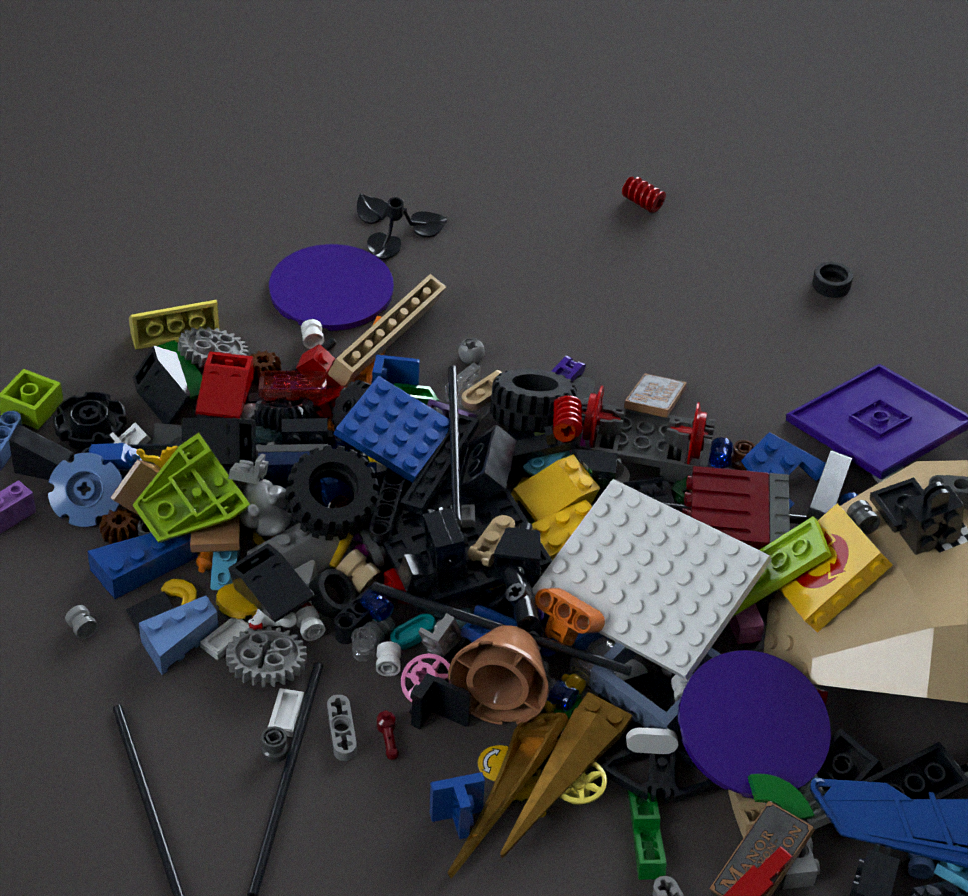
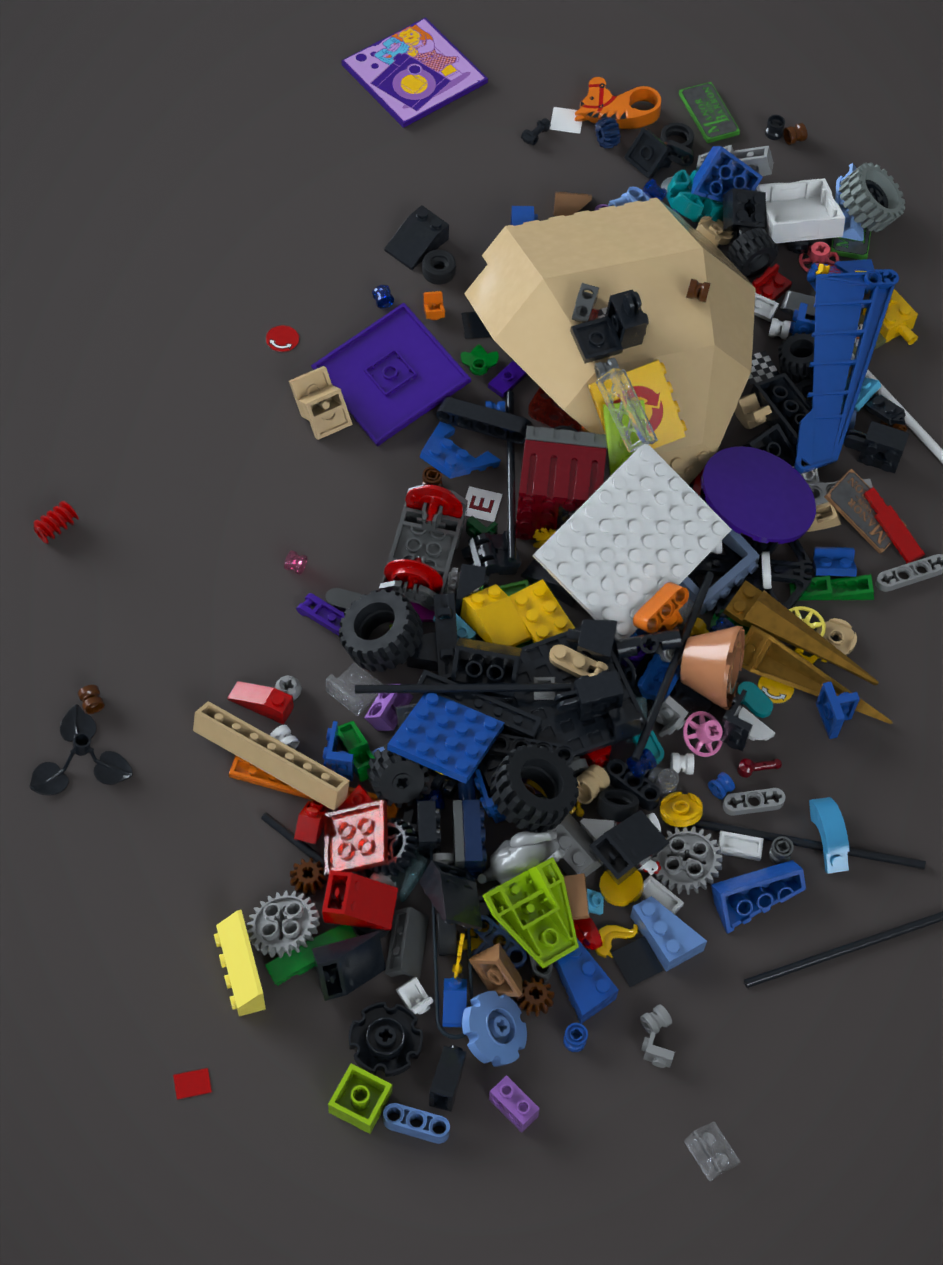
camera: 90 degrees left, 15 degrees up
(43, 620) = (658, 1056): none -> light grey bracket
(70, 306) = (192, 1083): none -> red sticker
(71, 557) = (574, 1042): none -> blue wheel
(183, 566) = (587, 933): none -> red rock
(222, 714) = (755, 892): none -> blue wedge
(246, 472) = (502, 862): light grey bracket -> none
(291, 782) = (833, 833): none -> dark azure arch
(312, 333) = (258, 832): white wheel -> none
(329, 654) = (681, 809): none -> yellow tile
(332, 285) = (176, 818): dark purple tile -> none
(360, 693) = (721, 785): none -> blue wheel
(415, 348) = (284, 735): none -> white wheel
(442, 732) = (759, 729): none -> white tile
(452, 335) = (263, 700): none -> red slope
(453, 226) = (90, 697): none -> reddish brown wheel
(479, 394) = (350, 672): tan plate -> none
(479, 737) = (756, 700): none -> teal tile
(567, 418) = (433, 592): red piece -> none
(570, 837) = (843, 631): none -> tan plate
(621, 354) = (295, 562): none -> clear pink wheel
(655, 395) = (363, 535): tile -> none
(682, 828) = (834, 561): none -> blue bracket
(781, 793) = (816, 488): green tile -> none
(808, 532) = (632, 406): none -> clear fence
(824, 363) = (320, 402): none -> tan bracket
(828, 288) = (197, 395): black tyre -> none
(903, 748) = (749, 411): none -> tan brick
(914, 346) = (282, 338): none -> red sticker

